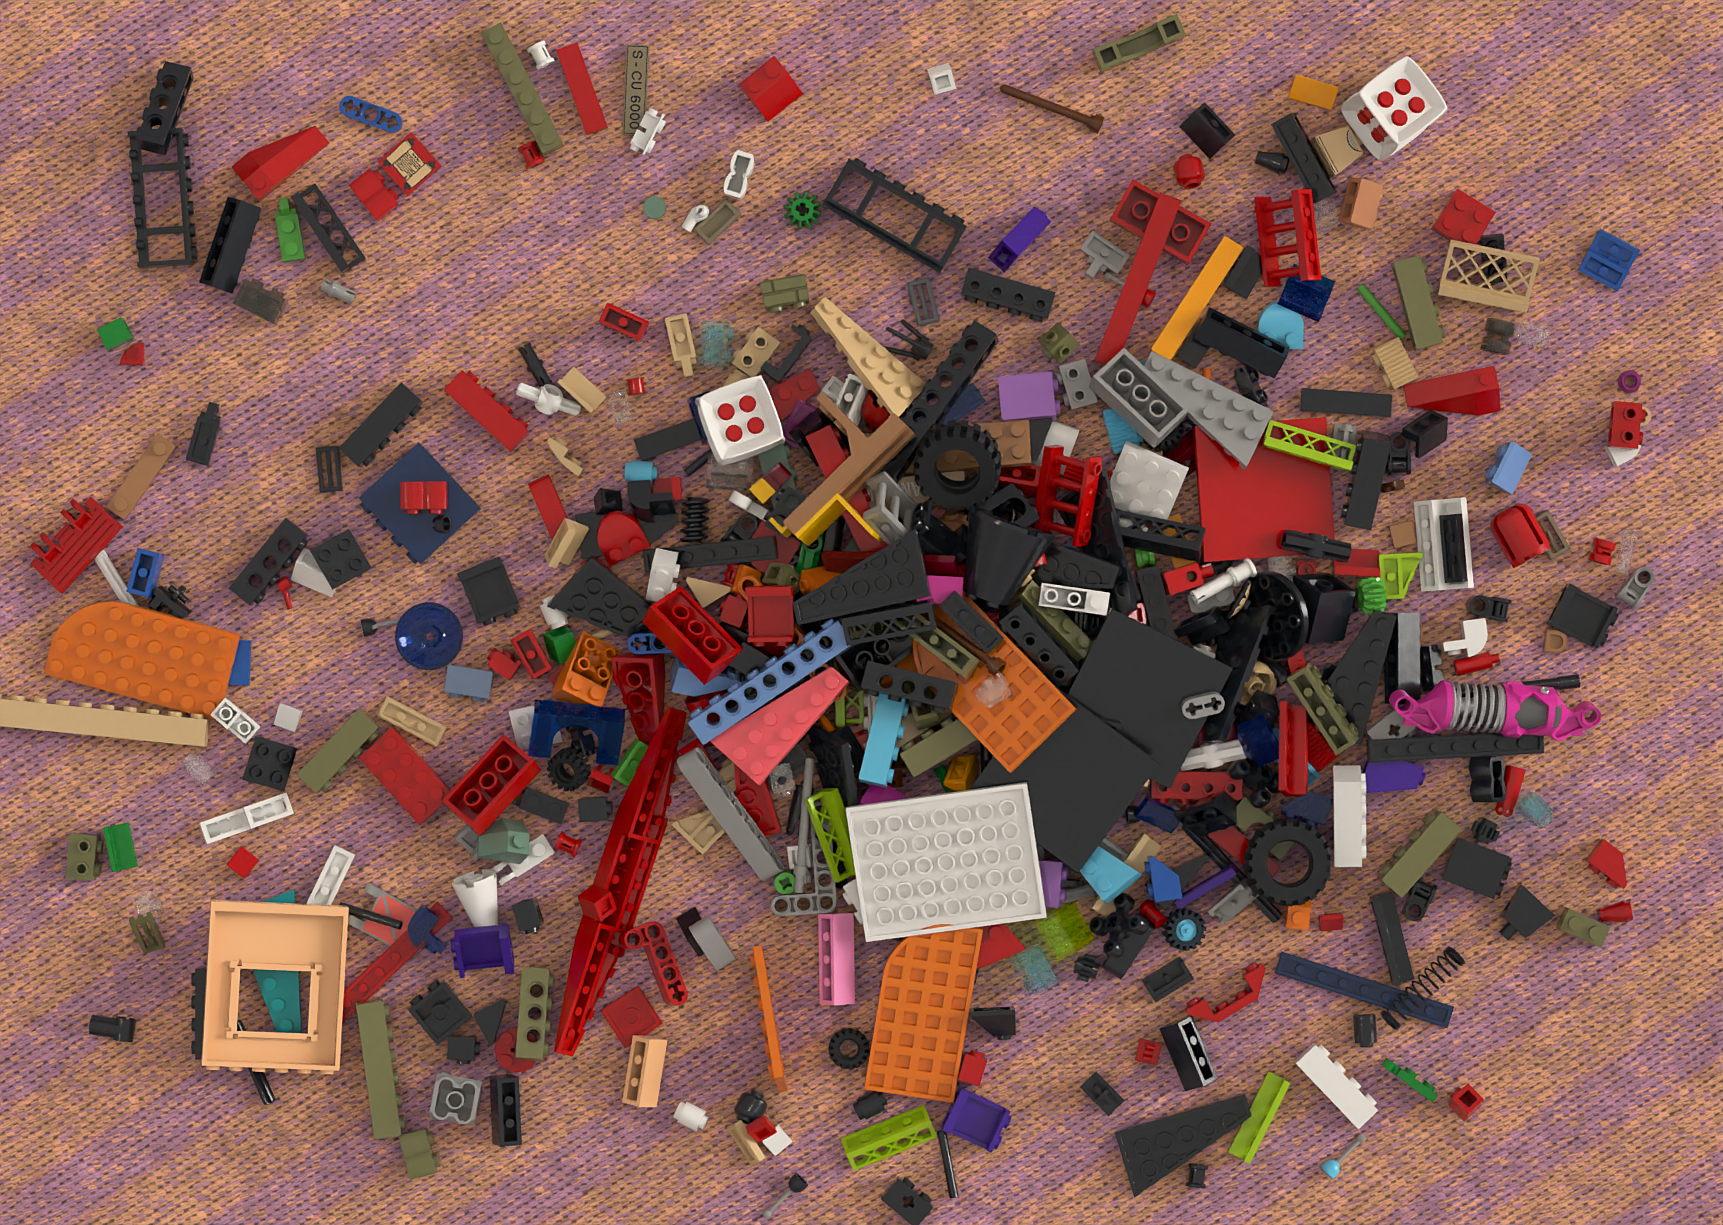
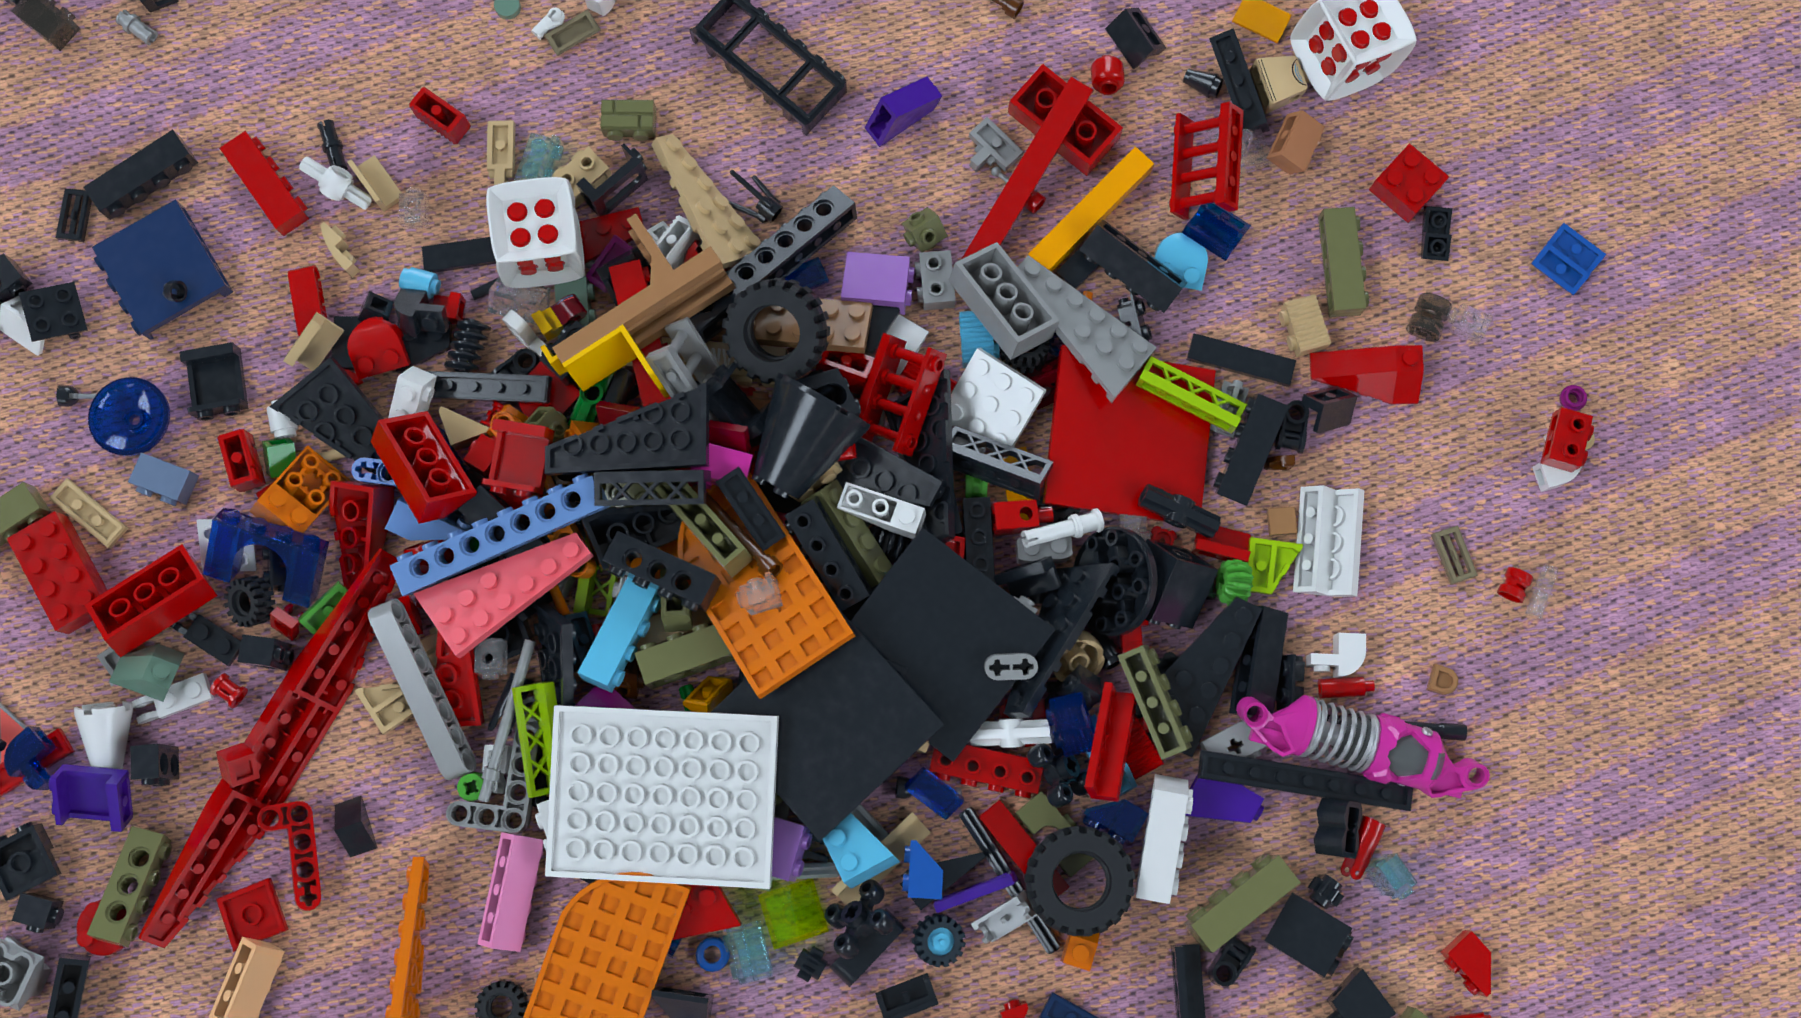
camera: 10 degrees right, 10 degrees down
(423, 496) = (161, 255): red brick -> none
(490, 1019) = (81, 883): black slope -> none
(503, 663) = (208, 466): red brick -> none
(636, 386) = (438, 189): red axle -> none
(712, 943) = (364, 842): light grey beam -> none
(809, 206) = (671, 44): green gear -> none
(928, 320) = (782, 181): dark grey tile -> none
(996, 977) = (700, 958): none -> blue piece
(1007, 294) = (877, 167): black brick -> none
(1149, 910) = (900, 907): red pin -> none
(1208, 814) = (994, 803): black slope -> none
(1241, 601) = (1079, 556): black dish -> none
(1245, 273) = (1150, 195): black panel -> none
(1331, 921) = (1119, 967): red slope -> none
(1380, 310) = (1297, 266): bright green bar -> none
(1453, 548) = (1340, 546): black tile -> none
(1479, 292) = (1425, 268): tan fence -> none
(1493, 607) = (1375, 624): black piece -> none
(1508, 467) = (1420, 465): medium blue slope -> none
(1519, 534) = (1421, 544): red cylinder -> none
(1582, 616) = (1481, 657): black panel -> none
(1635, 588) = (1546, 637): light grey piece -> none

